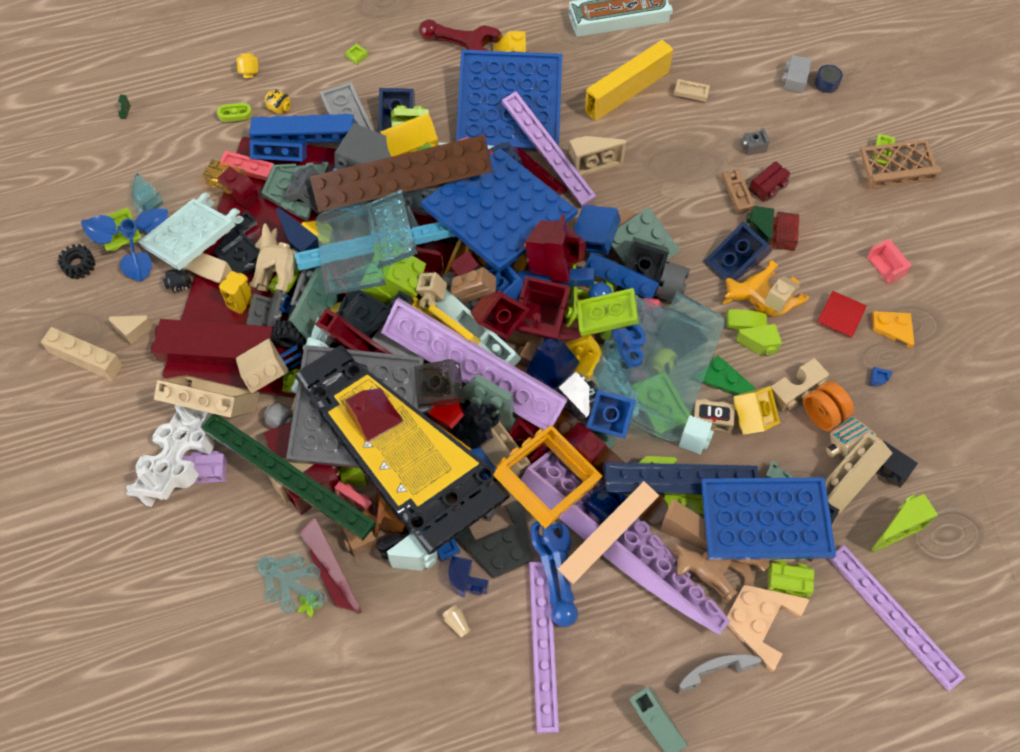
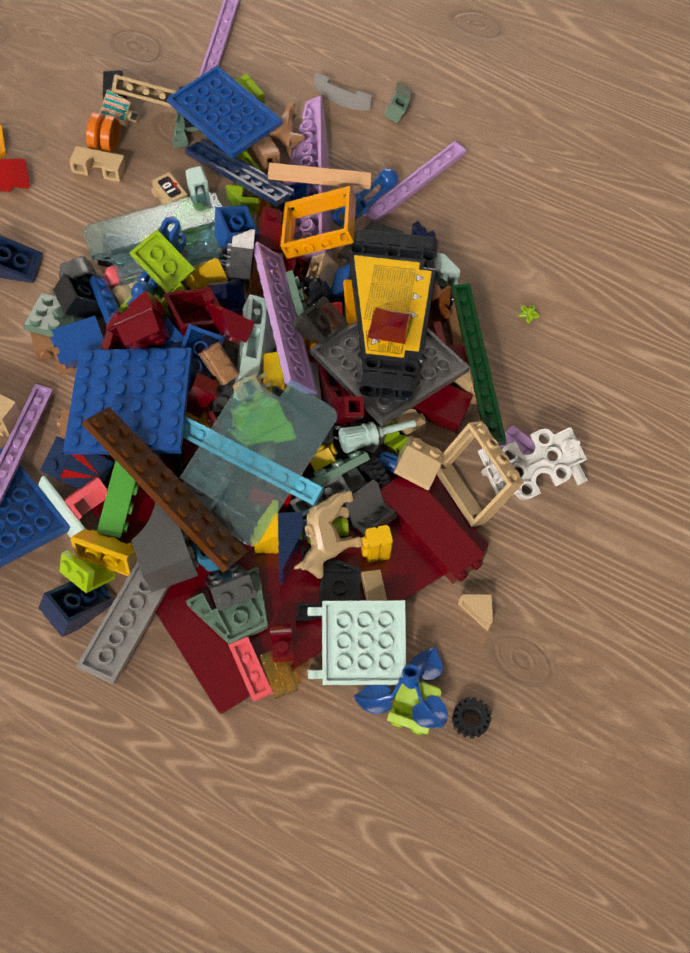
camera: 135 degrees left, 0 degrees up
(81, 353) = (536, 619): tan brick -> none
(125, 106) = (287, 862): dark green tile -> none
(144, 195) = (360, 729): clear light blue slope -> none
(177, 280) = (412, 616): black head -> none
(234, 112) = (199, 750): lime plate -> none
(247, 65) = (134, 788): yellow head -> none
(277, 415) = (436, 434): light grey head -> none
(278, 101) = (152, 721): yellow head -> none
(278, 149) = (211, 652): blue brick -> none
(287, 580) = (527, 331): clear light blue plant -> none
(310, 127) = (171, 649): blue brick -> none
(329, 568) = (497, 317): wedge -> none
(356, 54) = (28, 710): lime tile -> none
(453, 324) = (266, 346): yellow tile -> none
(455, 619) = (450, 231): tan cone -> none
(537, 170) = (44, 443): dark red plate -> none
(724, 377) = (129, 199): green wing -> none
(743, 319) = (69, 223): lime slope -> none
(754, 614) = (278, 98): light nougat wing -> none
(756, 410) = (145, 168): yellow slope -> none
(757, 289) = (35, 226): light orange animal -> none
(760, 339) = (76, 202): lime slope -> none
(781, 293) = (29, 201): tan slope -> none
(879, 376) = (46, 131): blue tile -> none
(910, 519) = (157, 57): lime slope -> none

